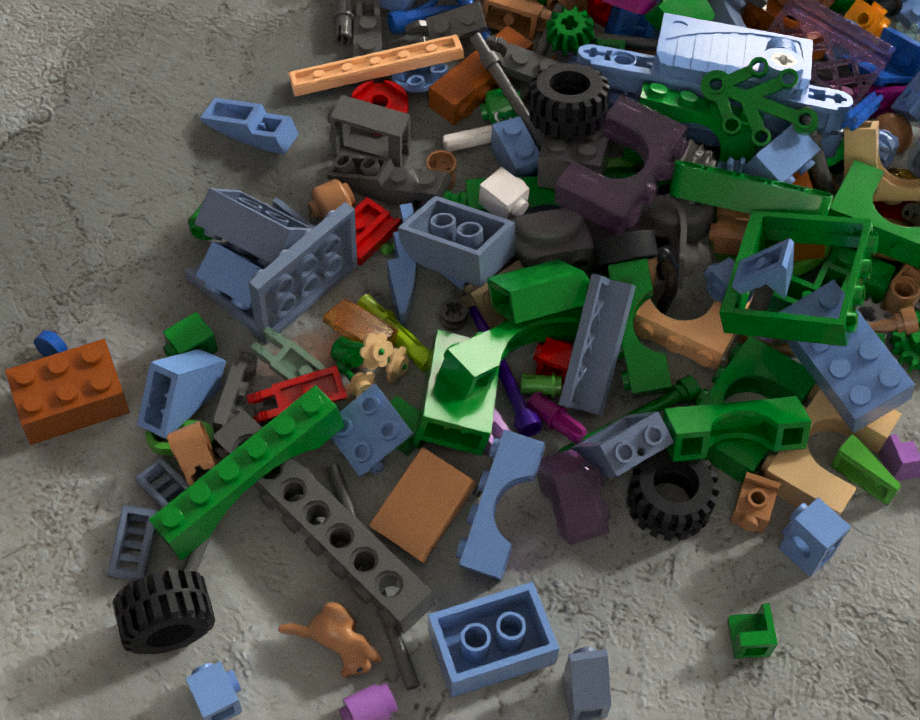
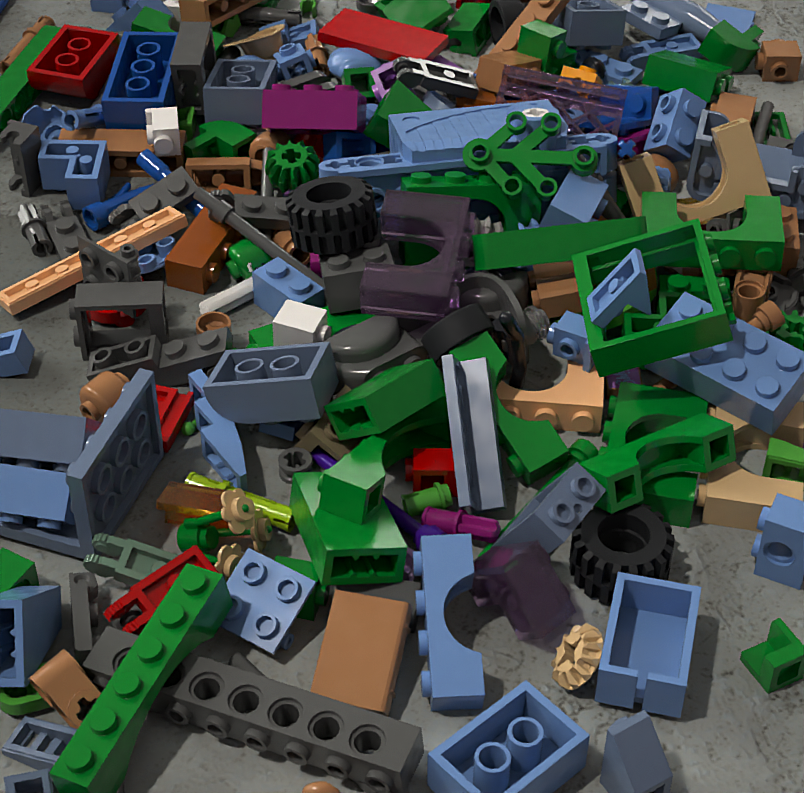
camera: 20 degrees left, 15 degrees down
(378, 91) = (107, 267): none -> dark grey hinge
(591, 571) = (585, 649): none -> tan gear
(651, 583) = (648, 644): none -> medium blue piece
(755, 502) = (708, 535): medium nougat brick -> none

